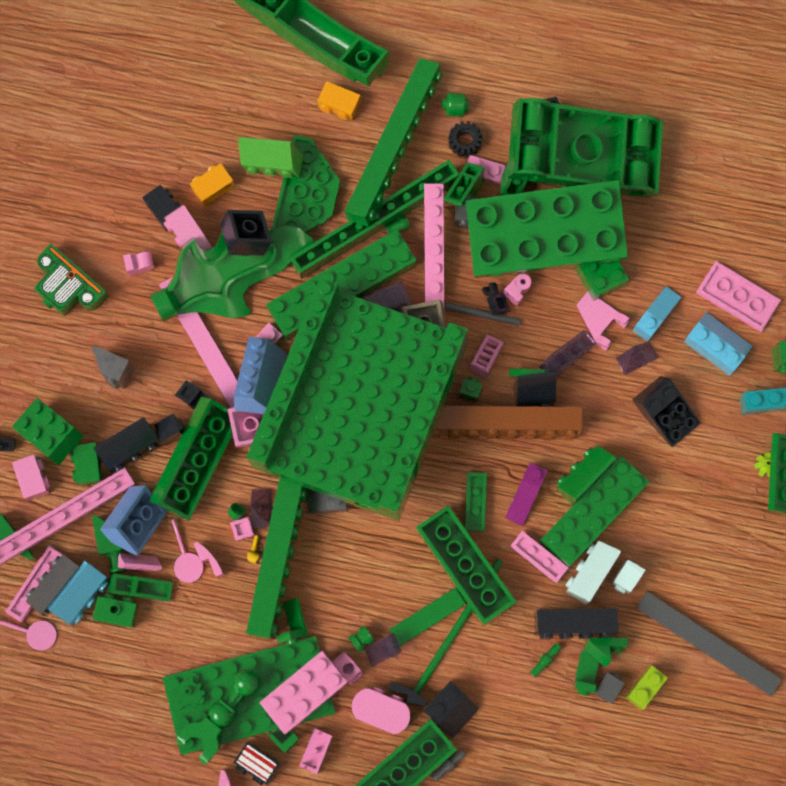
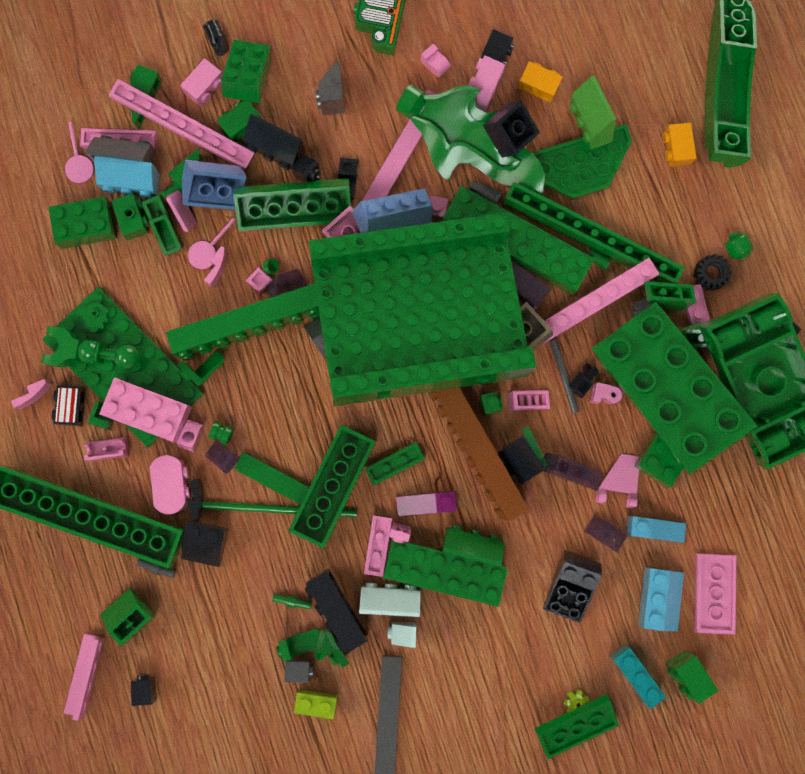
camera: 55 degrees right, 5 degrees up
(95, 658) = (82, 222): none -> green brick
(252, 556) = (241, 300): yellow hand -> none
(282, 287) = (486, 192): none -> dark grey hinge
(393, 142) = (671, 210): green brick -> none
(539, 529) = (400, 532): none -> bright pink plate

